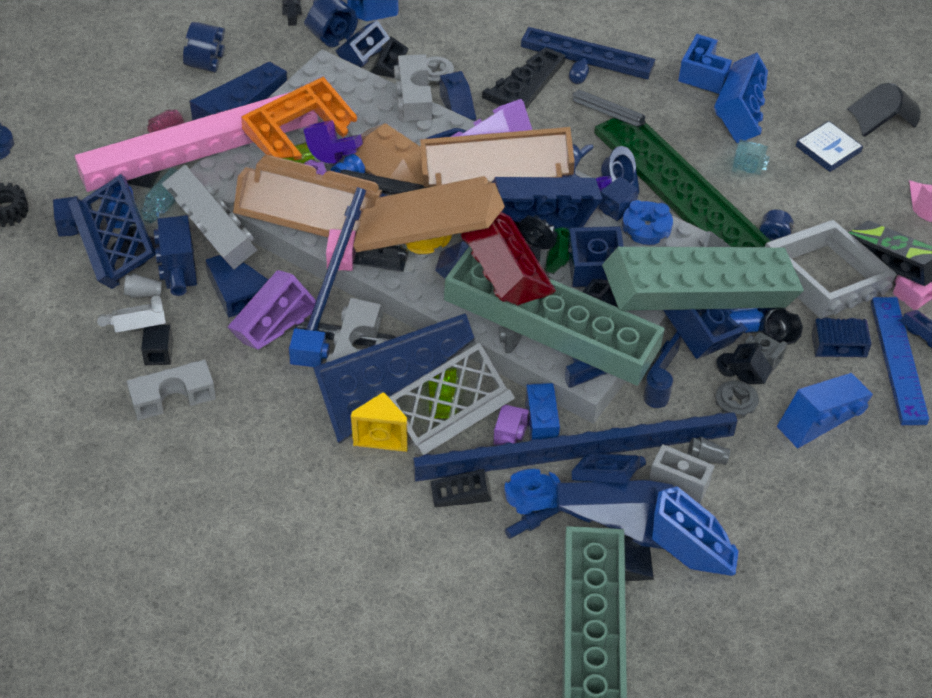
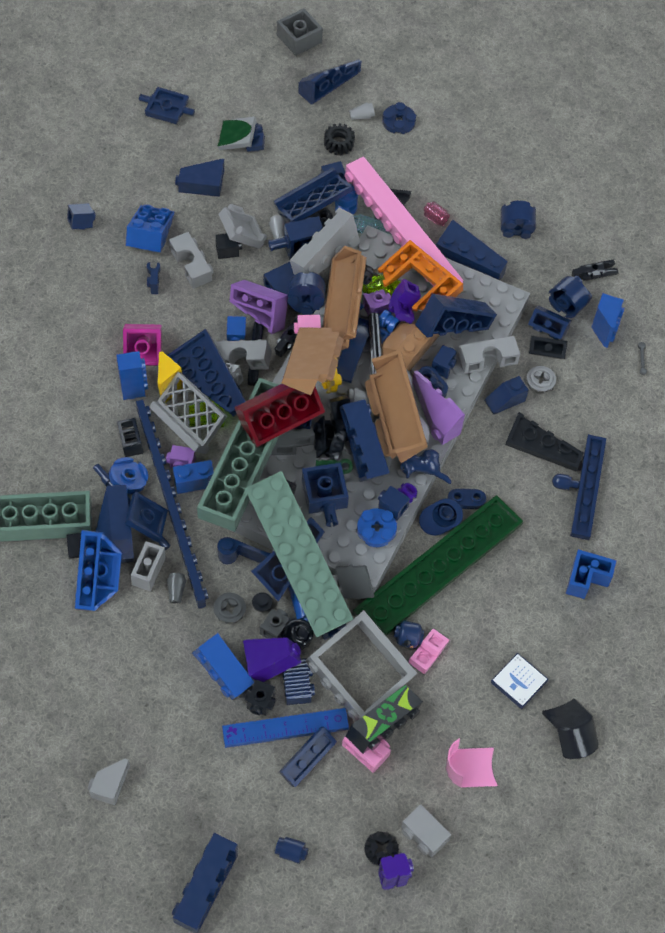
camera: 80 degrees right, 10 degrees up
(25, 362) = (202, 178): none -> dark blue slope
(51, 519) = (80, 216): none -> dark blue brick
(97, 435) = (149, 228): none -> blue slope
(194, 435) = (153, 281): none -> dark blue plate
(279, 249) = (306, 292): none -> dark blue brick
(307, 458) = (145, 339): none -> dark pink slope
(338, 296) = (286, 341): none -> black hinge
(352, 214) = (318, 317): dark blue bar -> none
(365, 95) = (454, 315): none -> dark blue wedge
(369, 464) = (132, 375): none -> blue wedge
(417, 126) = (444, 361): none -> dark blue brick
(593, 160) = (467, 498): none -> dark blue plate
(609, 108) = (516, 502): black axle -> none
(742, 97) = (554, 603): blue wedge -> none
(750, 157) = (485, 613): clear light blue brick -> none
(750, 364) = (255, 612): black brick -> none
(802, 219) = (428, 651): none -> bright pink slope
(819, 348) = (270, 657): none -> dark purple slope
(870, 370) = (260, 698): none -> black brick

